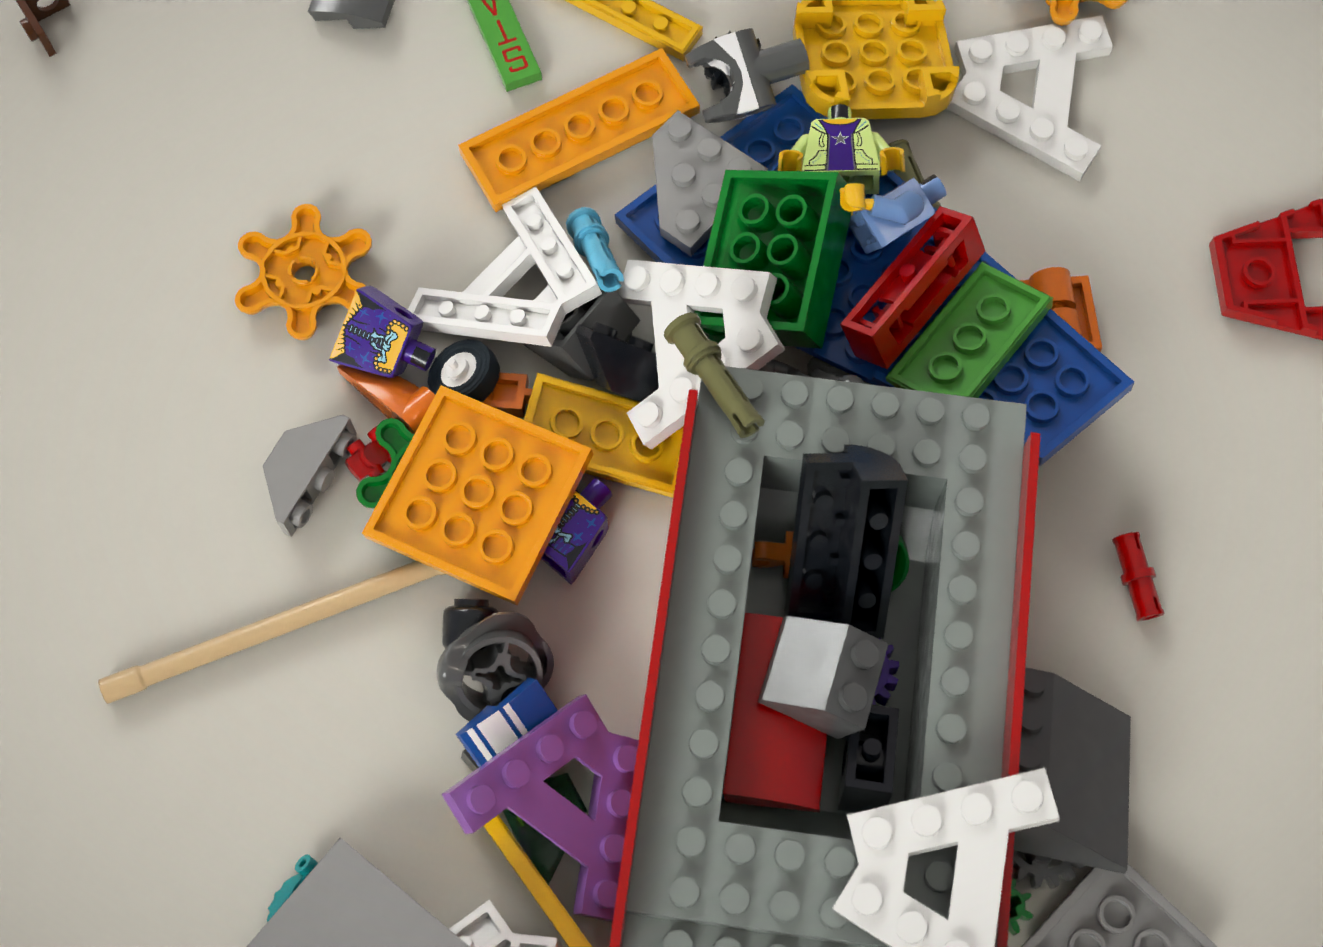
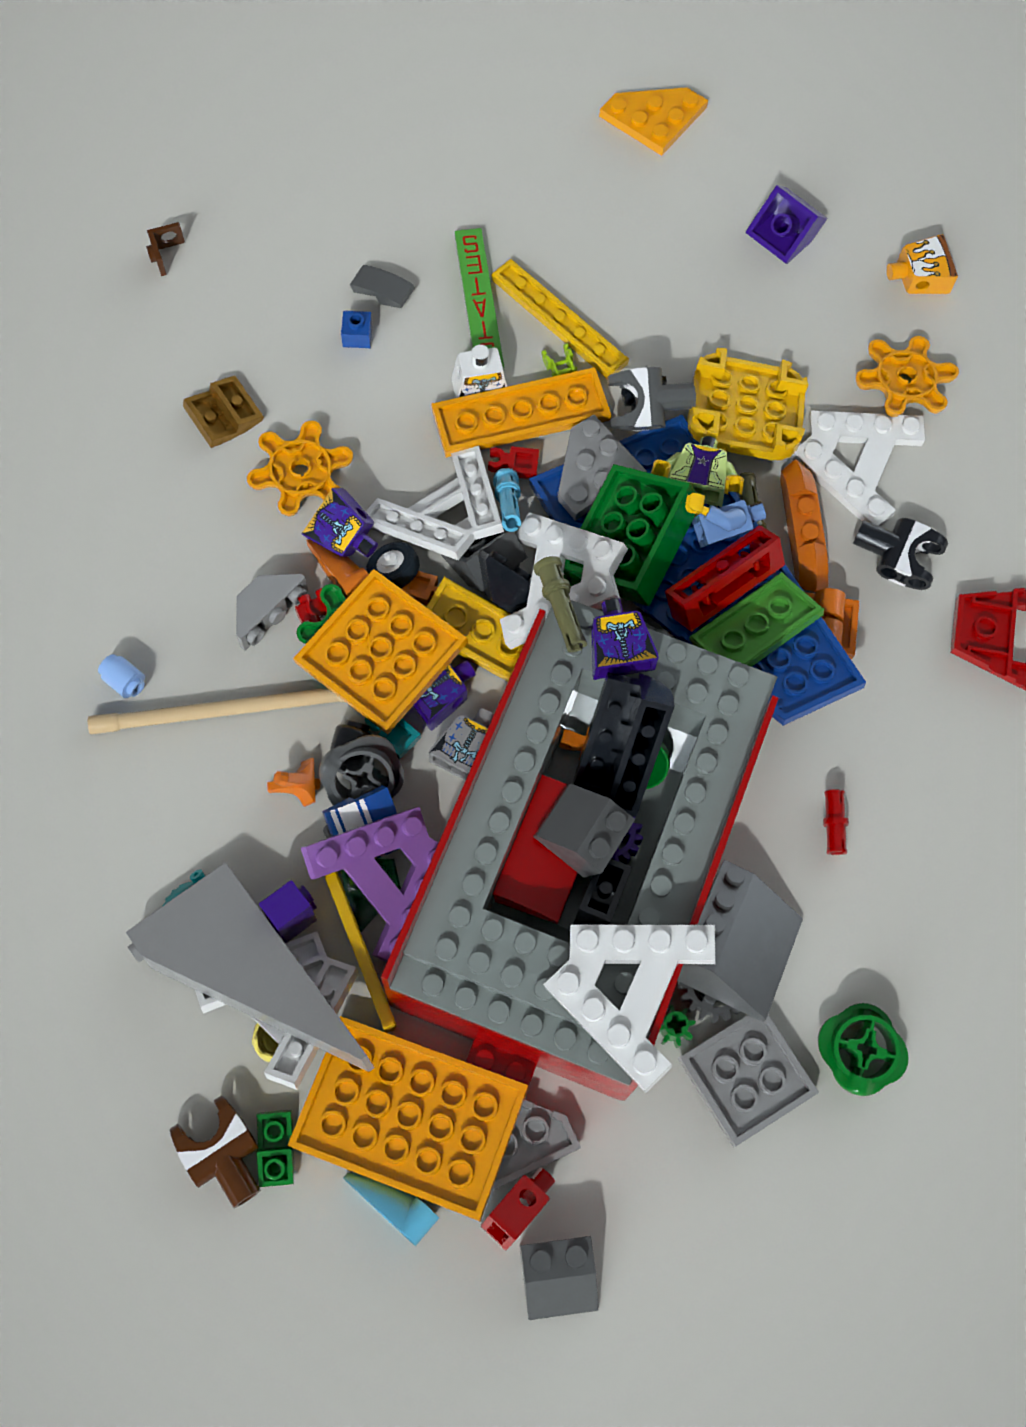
camera: 10 degrees right, 0 degrees up
(131, 613) = (121, 676): none -> light blue brick
(179, 219) = (223, 411): none -> pearl gold slope
(332, 69) = (356, 329): none -> blue plate
(413, 701) = (301, 783): none -> orange piece
(445, 882) = (289, 910): none -> dark purple brick
(509, 88) = (478, 371): none -> white torso
(536, 603) = (402, 736): none -> teal plate
(595, 192) = (520, 459): none -> red plate
(601, 57) = (550, 364): none -> lime piece
(624, 595) = (460, 743): none -> light grey torso
(809, 408) = (621, 642): none -> torso
(990, 194) = (804, 527): none -> orange brick
(1120, 196) = (899, 550): none -> black connector
(1302, 874) = (895, 1055): none -> green piece

